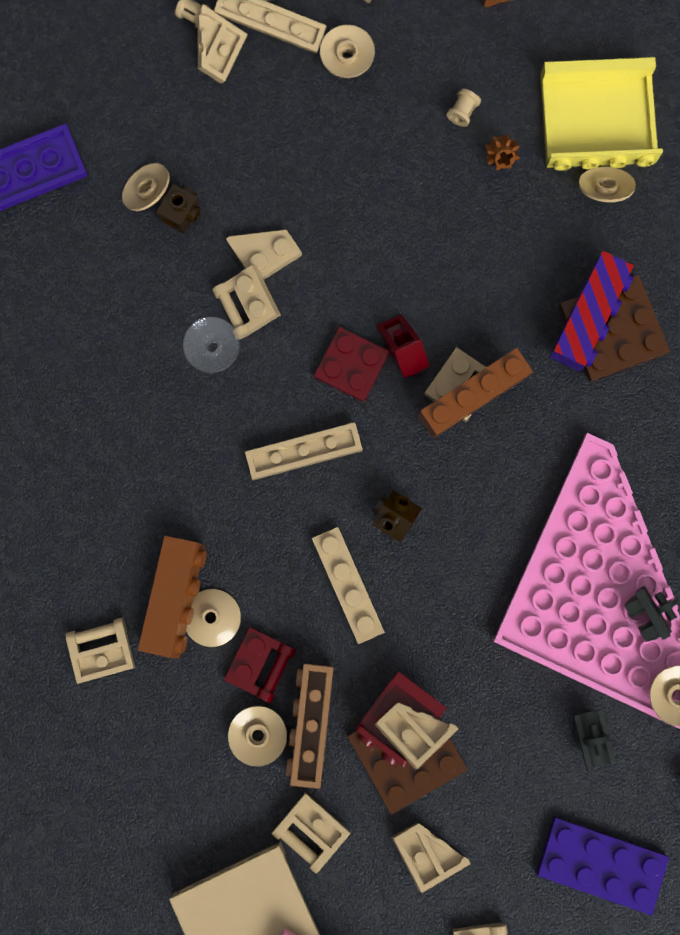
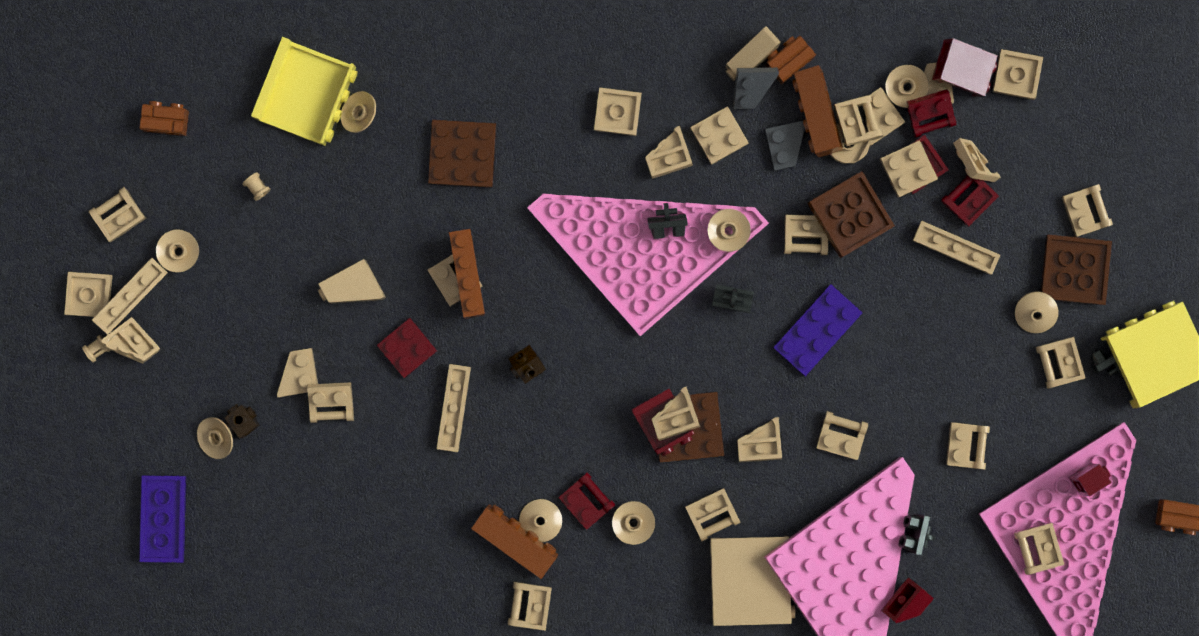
camera: 65 degrees left, 5 degrees up
(210, 331) = (339, 440): clear dish -> none
(312, 724) = (641, 482): medium nougat brick -> none
(348, 585) = (559, 417): tan plate -> none
(397, 266) = (352, 285): none -> tan slope
(403, 346) = (410, 306): dark red slope -> none
(502, 151) = (302, 174): dark orange gear -> none
(592, 311) = (445, 167): brick -> none

